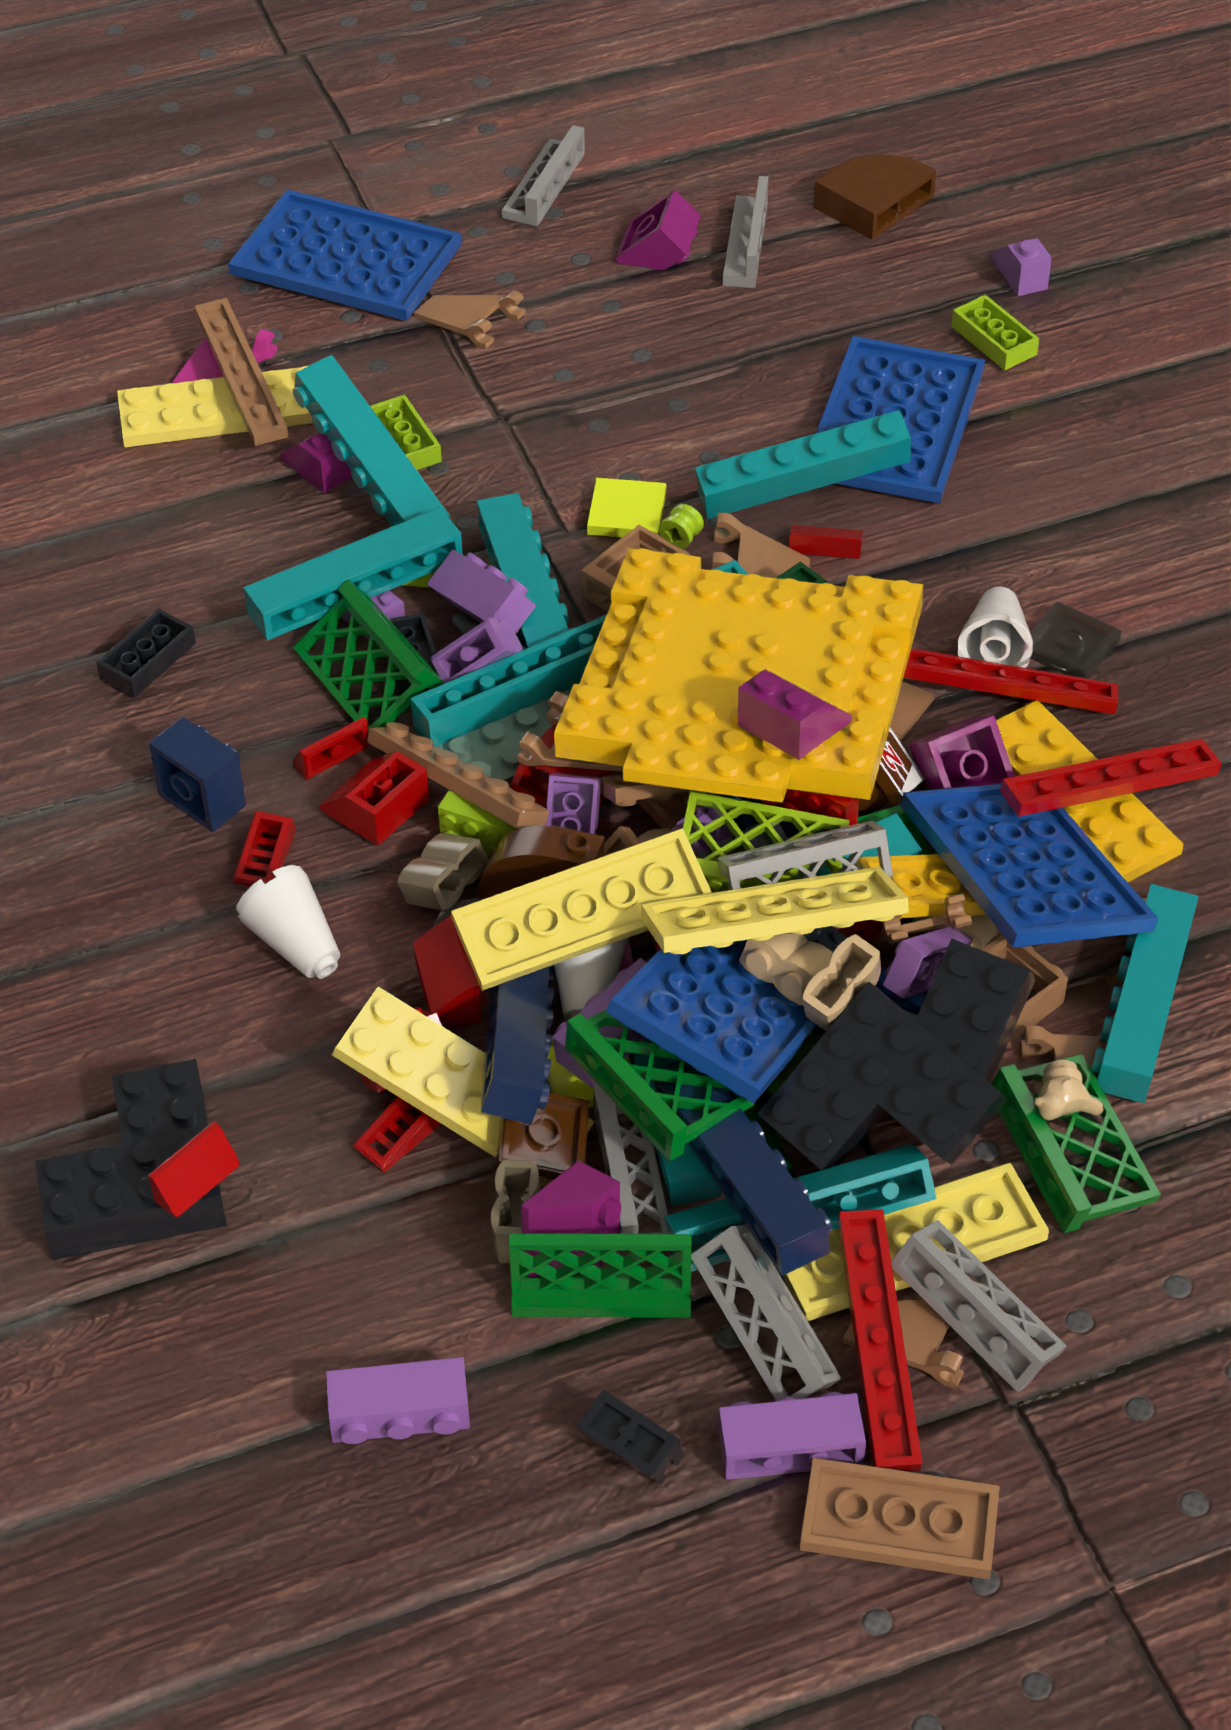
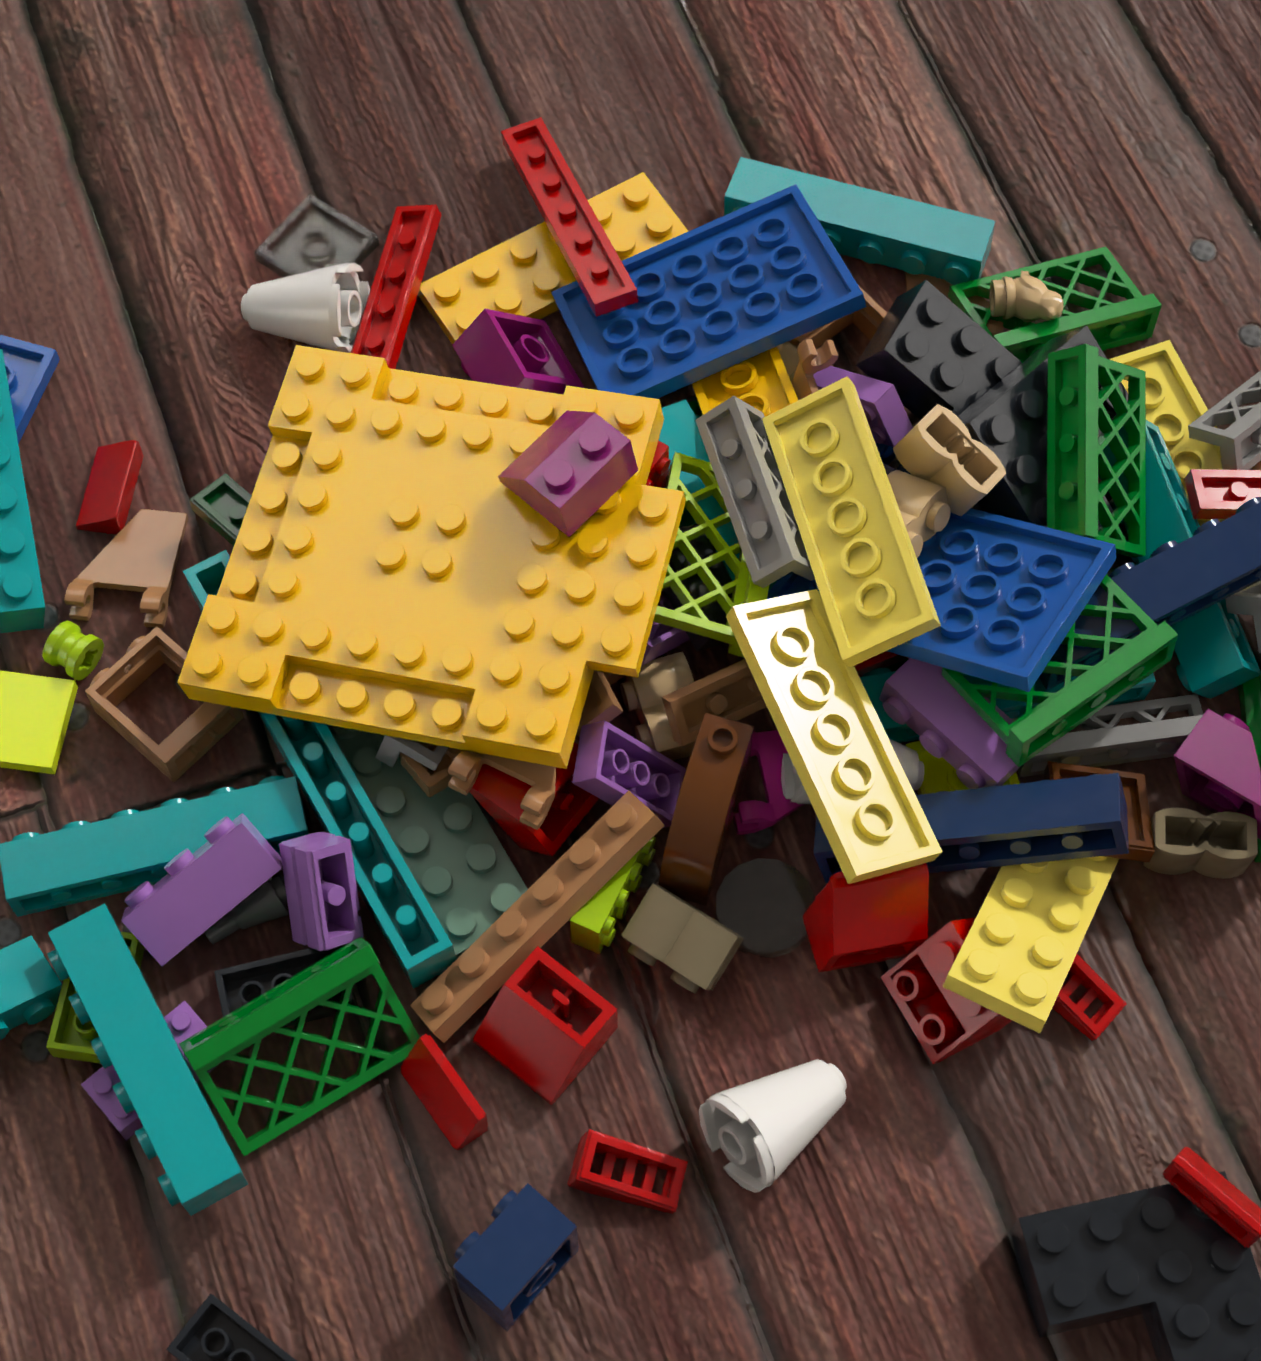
camera: 90 degrees left, 15 degrees up
(864, 1073) = (1077, 452): none -> green fence

